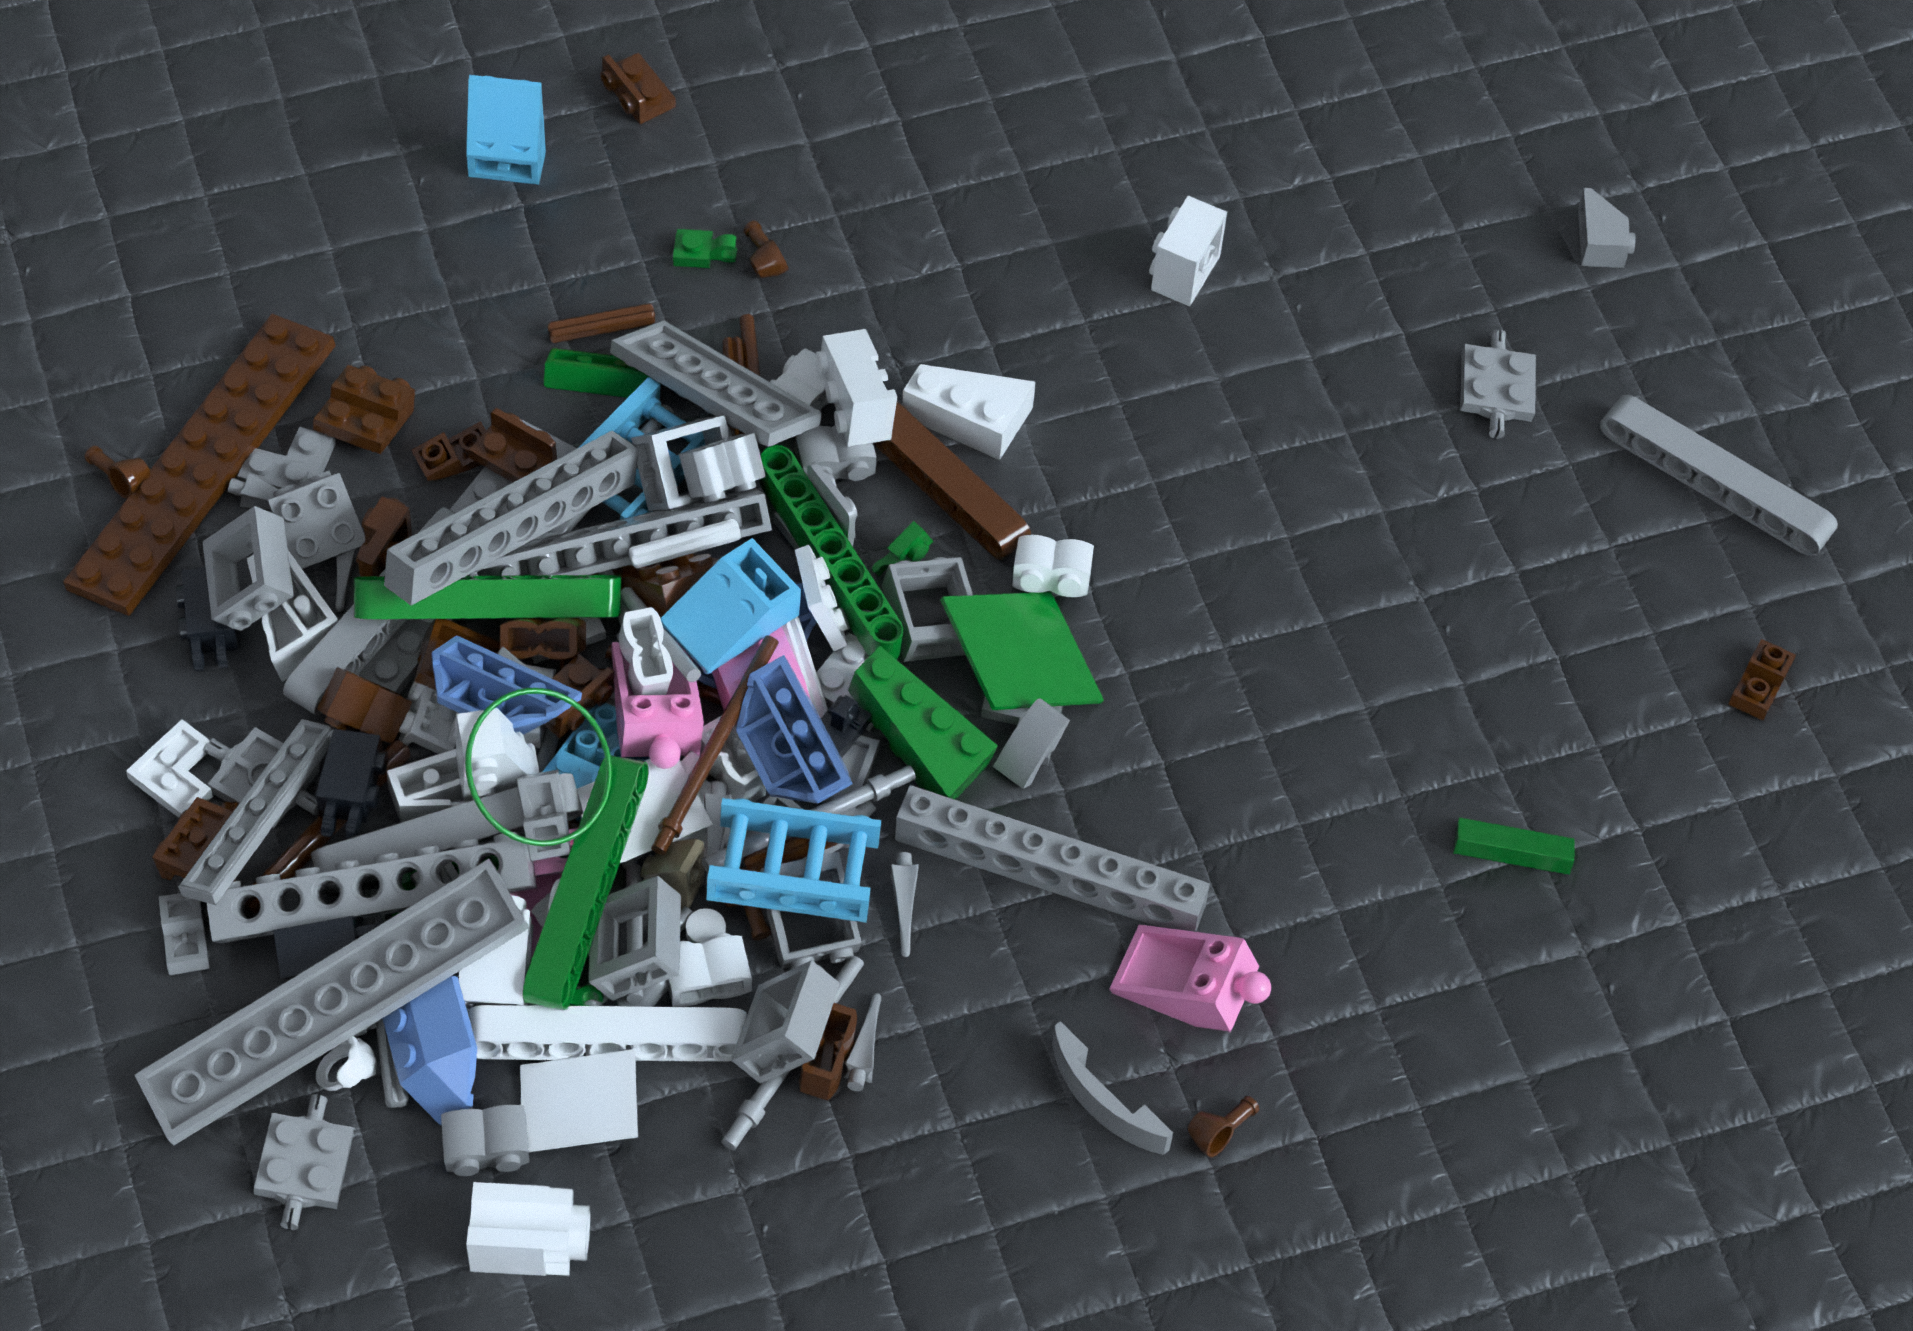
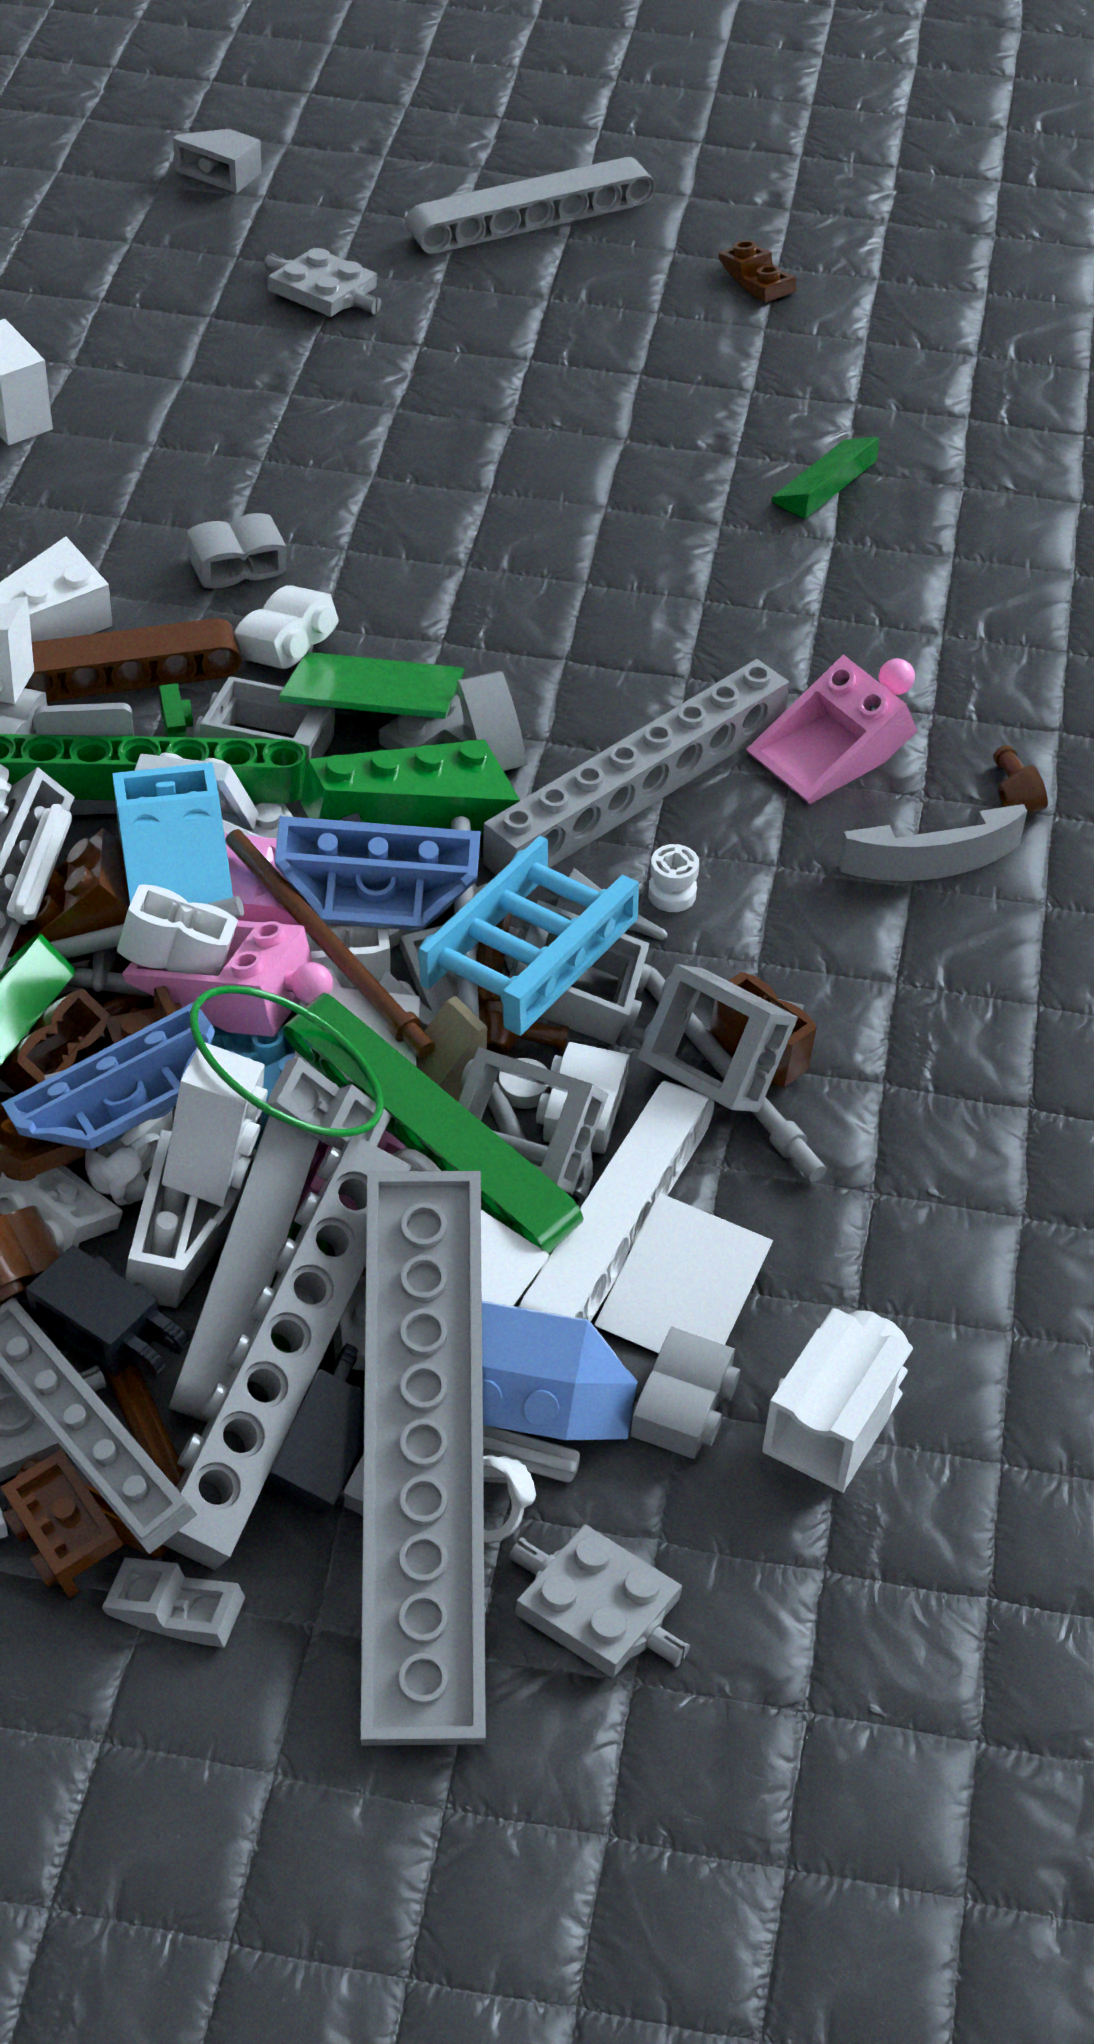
camera: 60 degrees left, 10 degrees down
(950, 940) = (673, 878): none -> white wheel
(1120, 492) = (236, 550): none -> light grey brick

